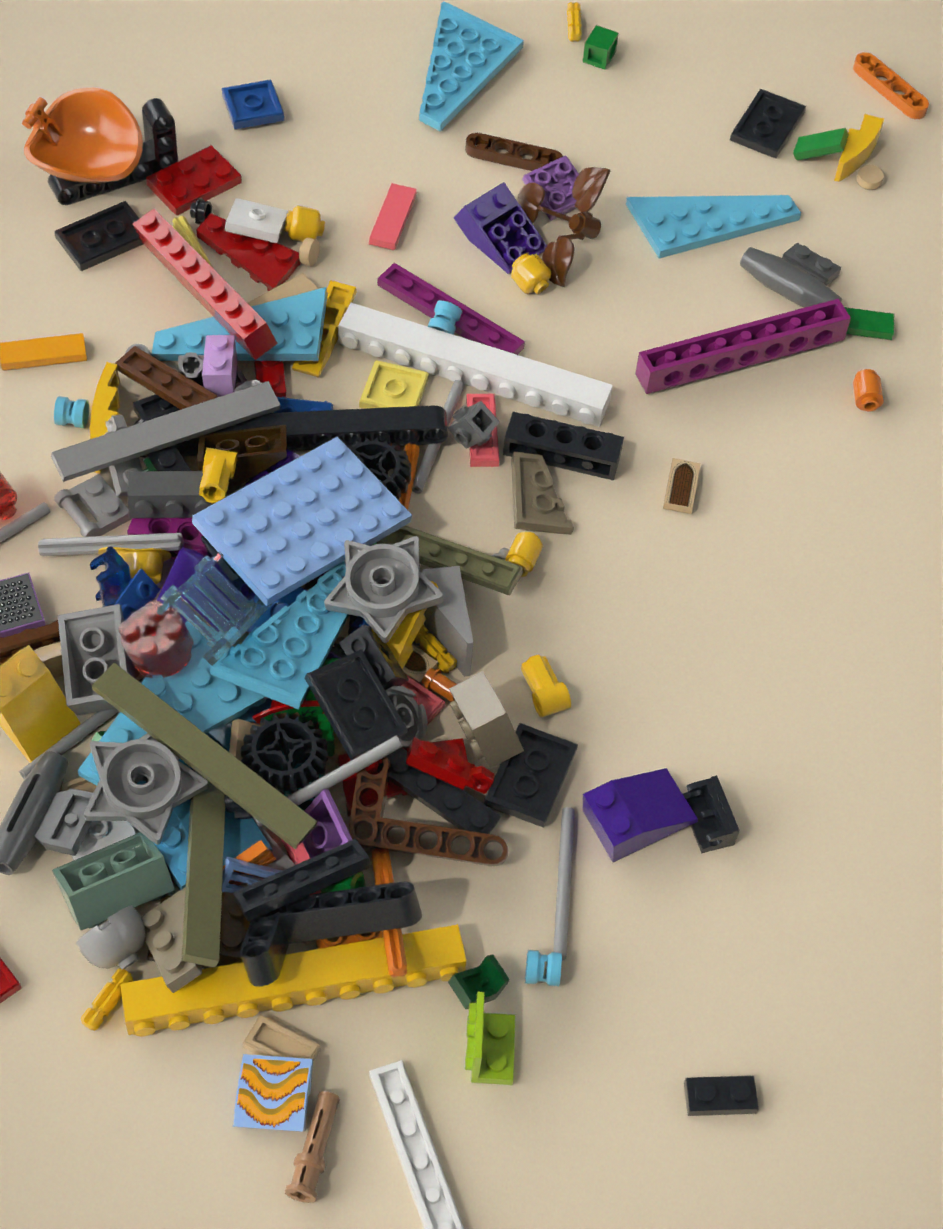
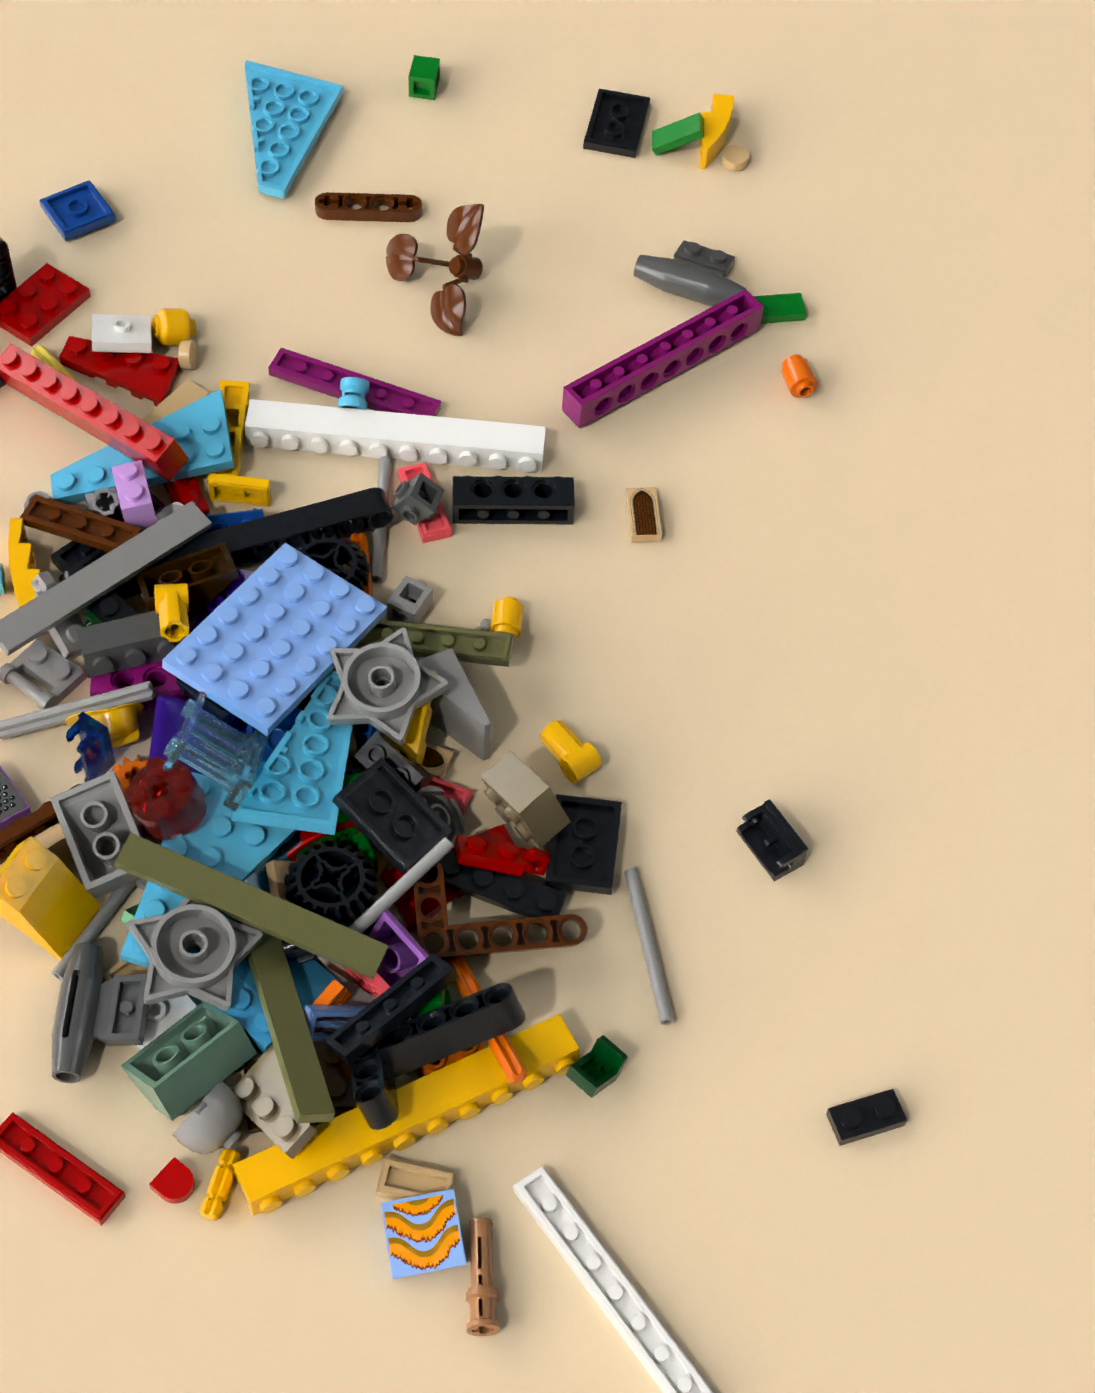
camera: 15 degrees left, 0 degrees up
(66, 986) = (173, 1182): none -> red tile
(137, 594) = (124, 757): blue hinge -> none
(200, 210) = (57, 335): black plate -> none
(317, 381) = (239, 489): none -> yellow tile
(392, 216) = (262, 299): coral tile -> none
(393, 386) = (318, 478): light yellow tile -> none
(435, 649) = (446, 739): yellow axle -> none
(439, 516) = (409, 601): none -> light grey brick
(439, 683) = (463, 774): orange pin -> none
(489, 1045) = (627, 1125): lime bracket -> none
(499, 227) = (380, 289): dark purple slope -> none
(530, 273) = (425, 329): yellow head -> none
(534, 497) = (499, 560): dark tan wing -> none
(535, 968) = (656, 1036): medium azure wheel -> none
(557, 181) = (427, 227): medium lavender tile -> none
(574, 21) = (388, 55): yellow axle -> none
(636, 812) = (699, 856): dark purple slope -> none
(693, 222) = (576, 239): medium azure wing -> none
(911, 103) = (752, 73): orange beam -> none

